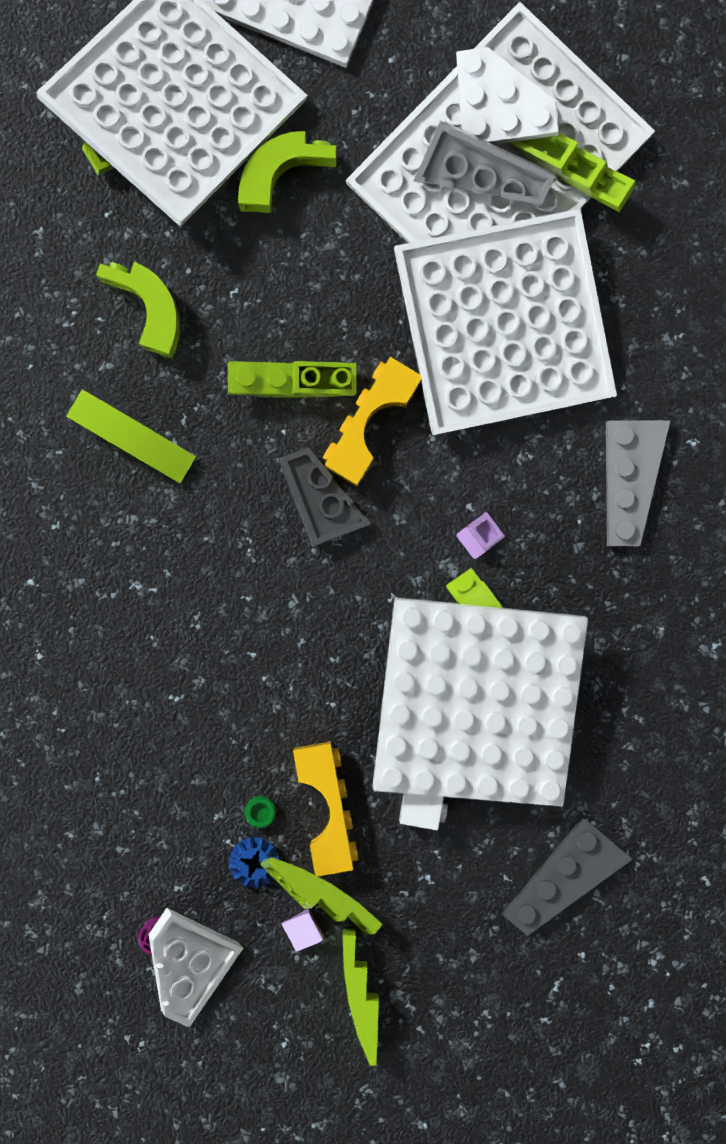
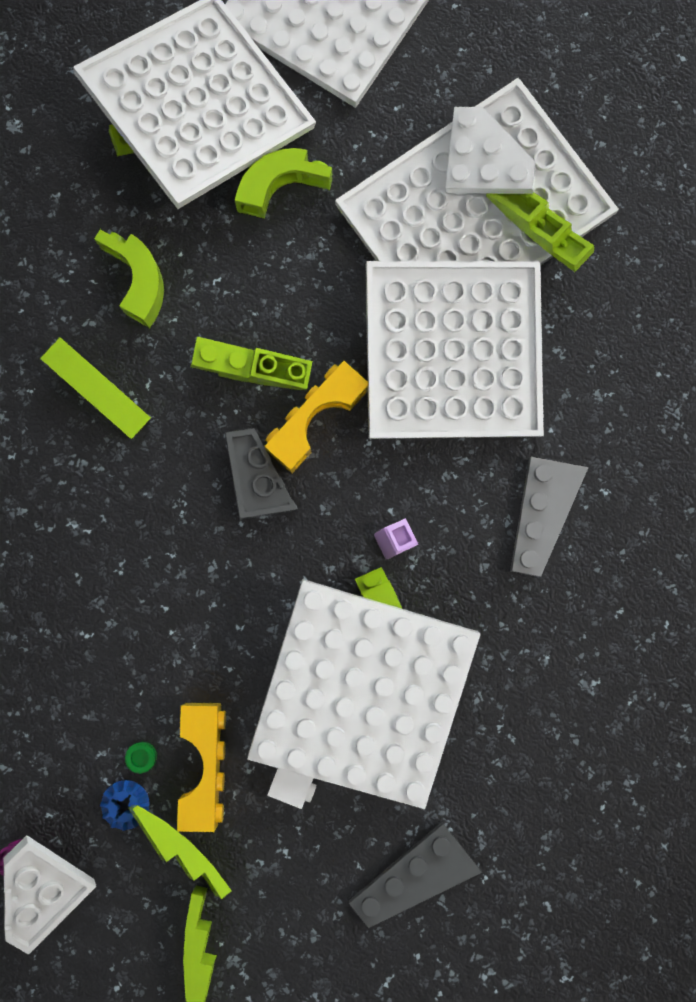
camera: 10 degrees right, 5 degrees down
(303, 930) = (157, 880): slope -> none
(475, 165) = (452, 206): light grey wing -> none

